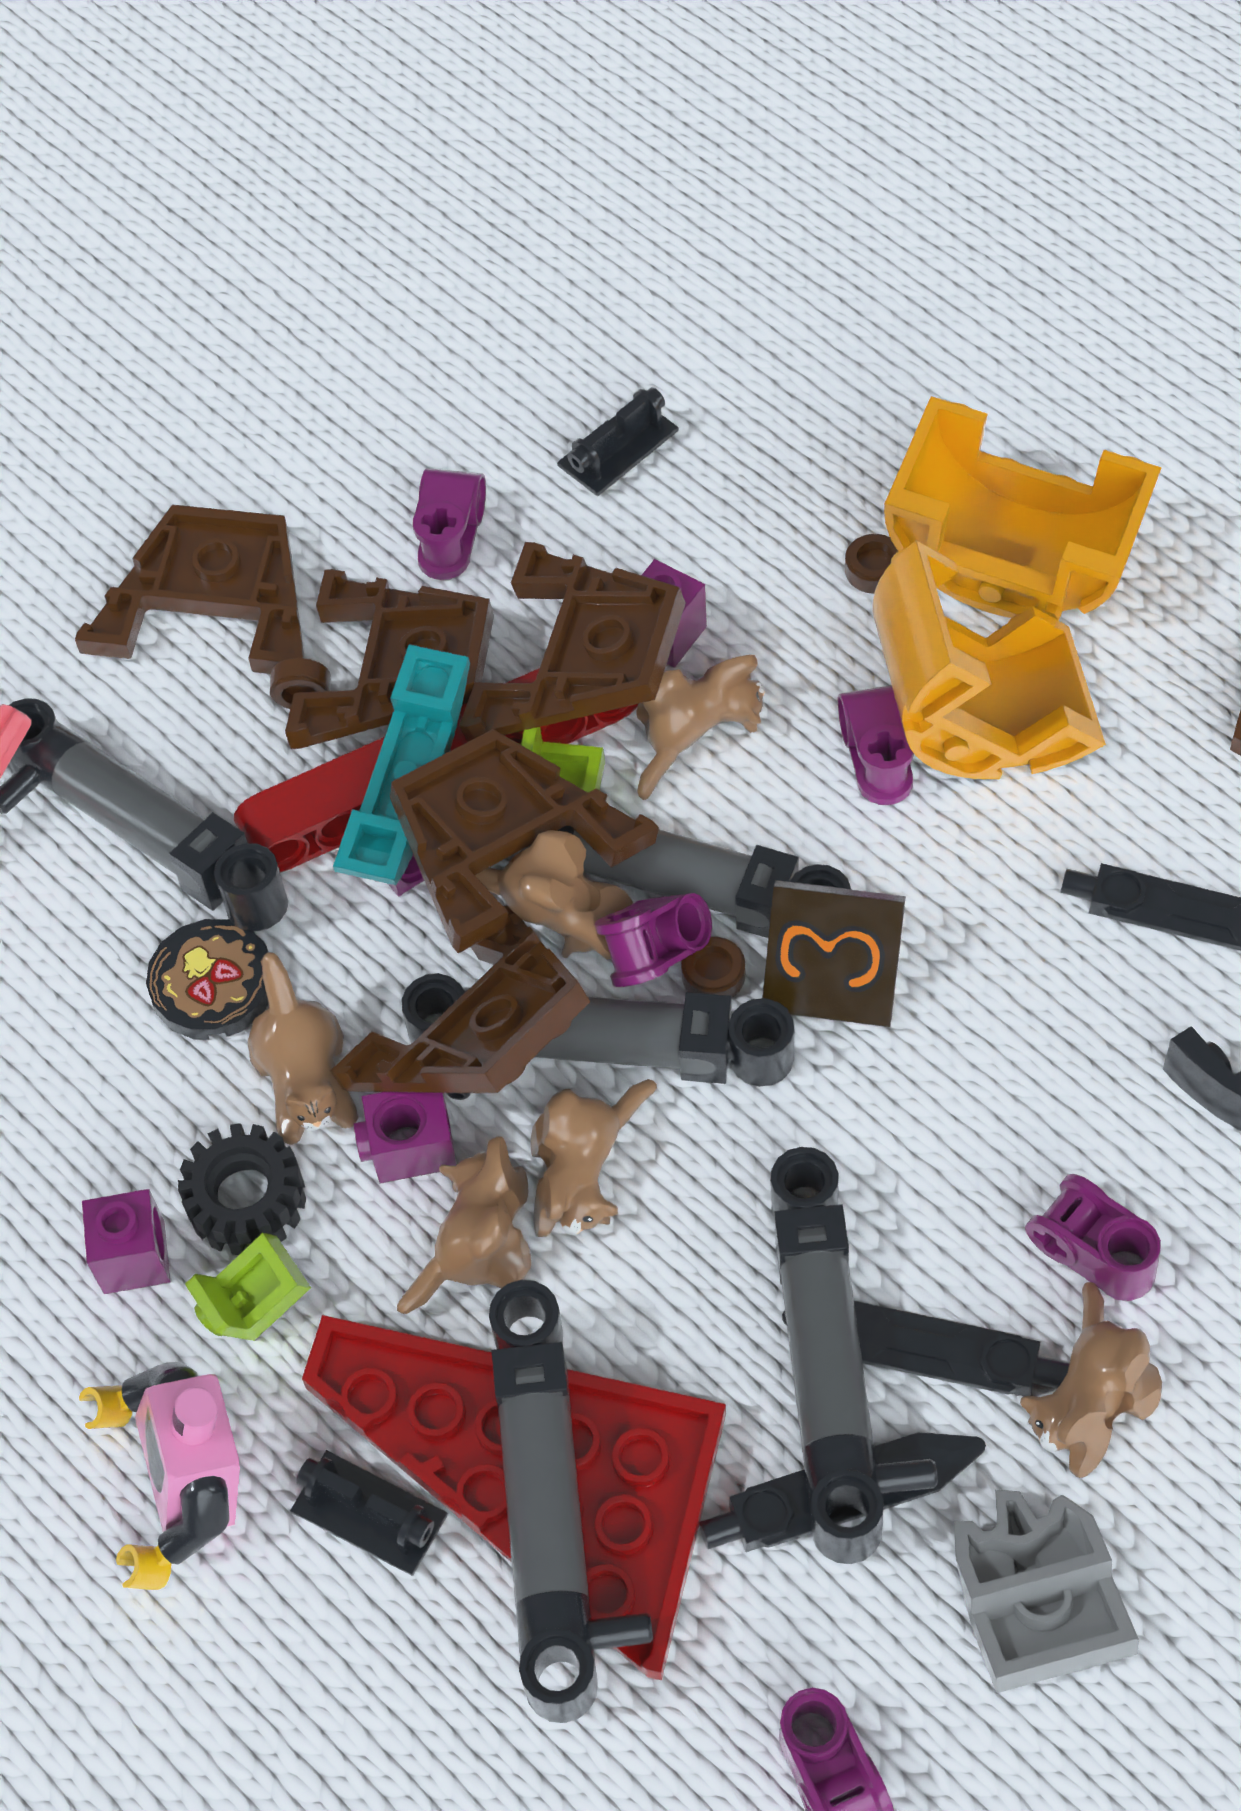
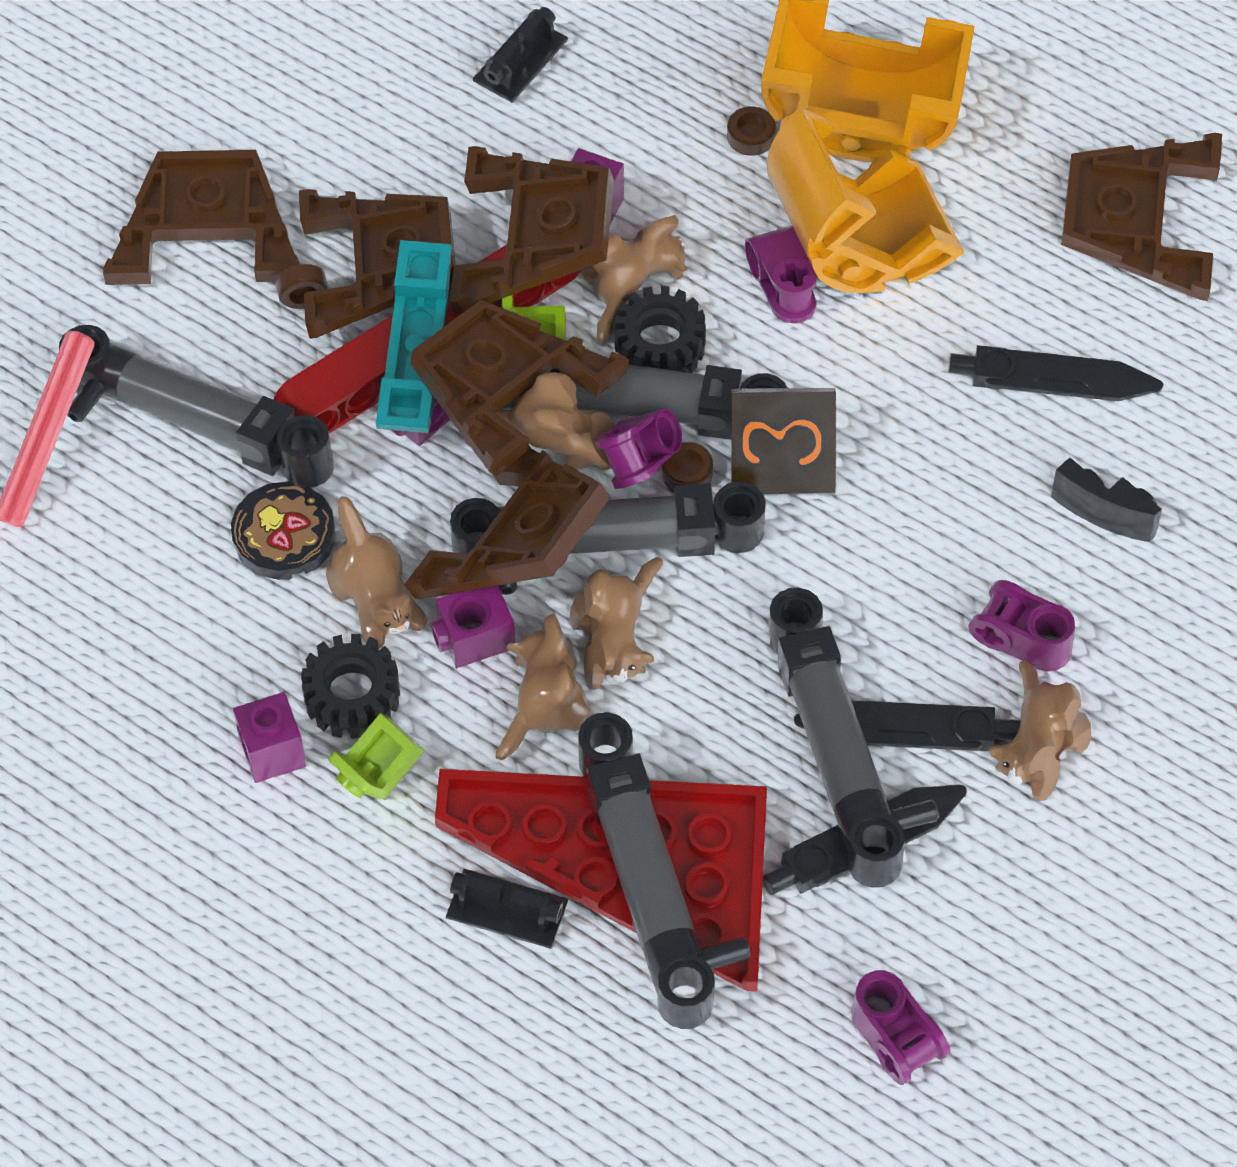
camera: 15 degrees left, 0 degrees up
(187, 1459) = (360, 885): torso -> none
(447, 520) = (392, 138): magenta piece -> none
(717, 768) = (666, 311): none -> black tyre
(1041, 1592) = (1028, 883): light grey plate -> none

